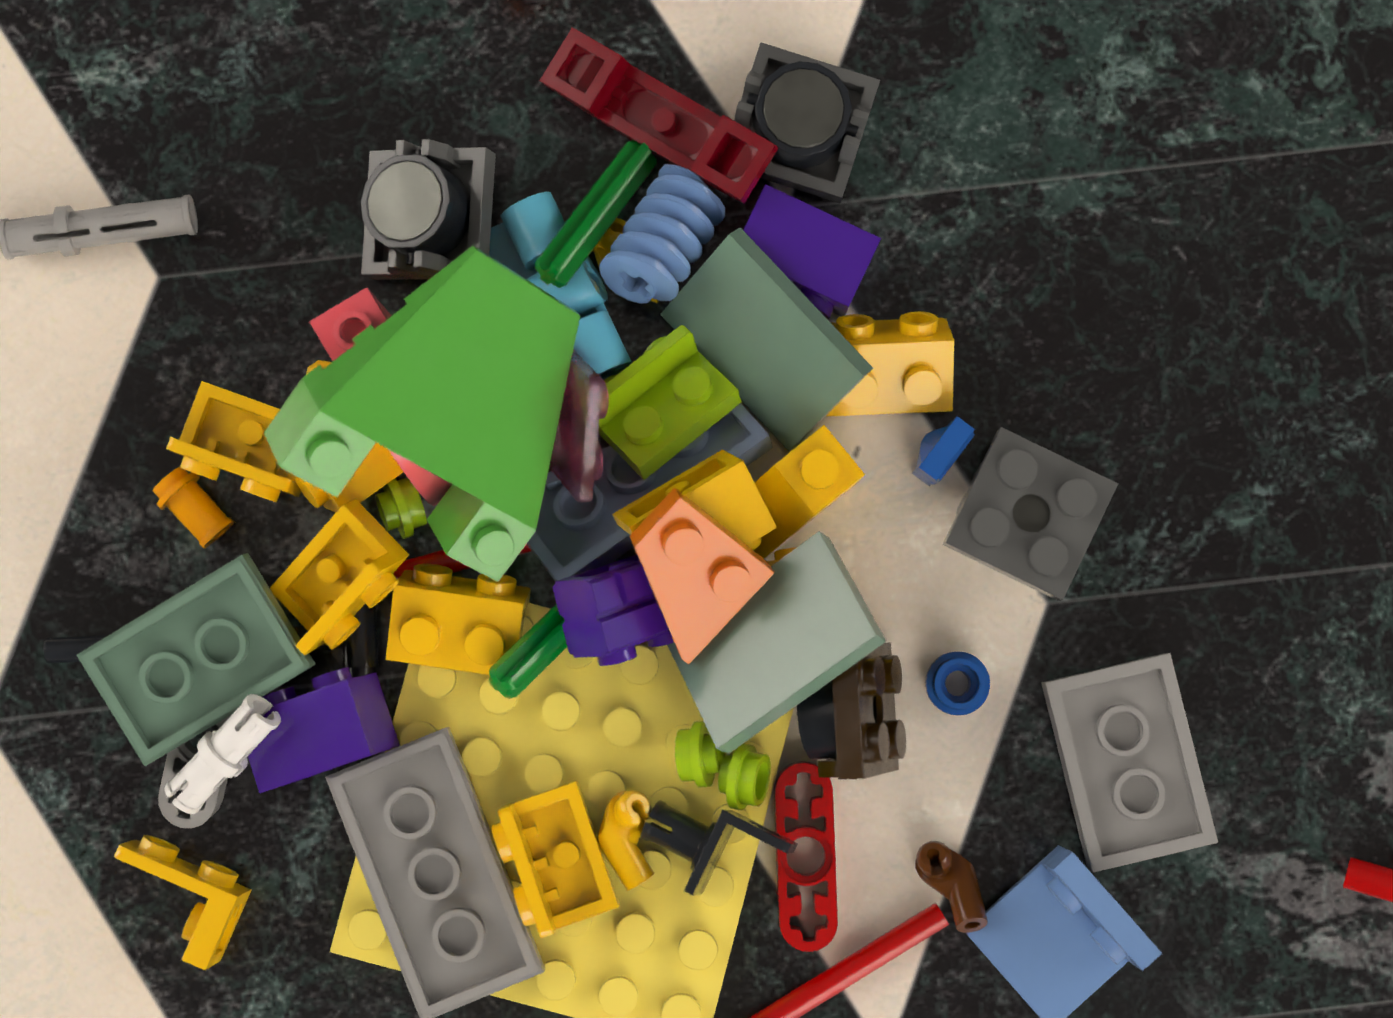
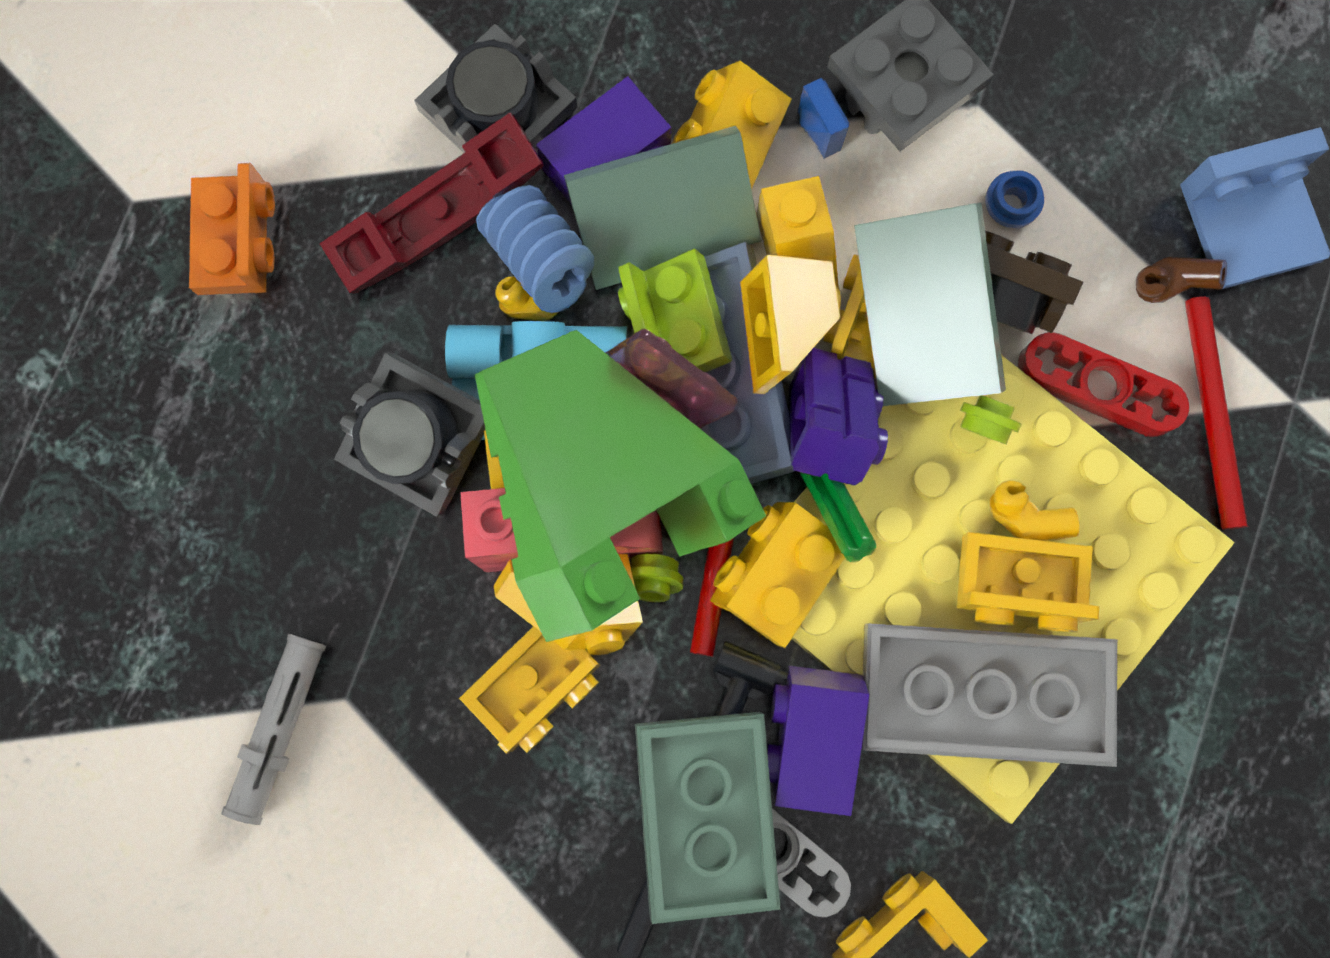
camera: 65 degrees left, 5 degrees down
(192, 506) = (564, 761): light orange pin -> none
(222, 754) = (803, 831): white pin -> none
(338, 574) = (694, 653): yellow bracket -> none
(595, 214) = (488, 293): green axle -> none
(696, 571) = (841, 339): orange wing -> none
(703, 843) = (1067, 451): black bracket -> none
(744, 777) = (1027, 392): lime plate -> none
(1129, 762) = (1139, 96): light grey plate -> none

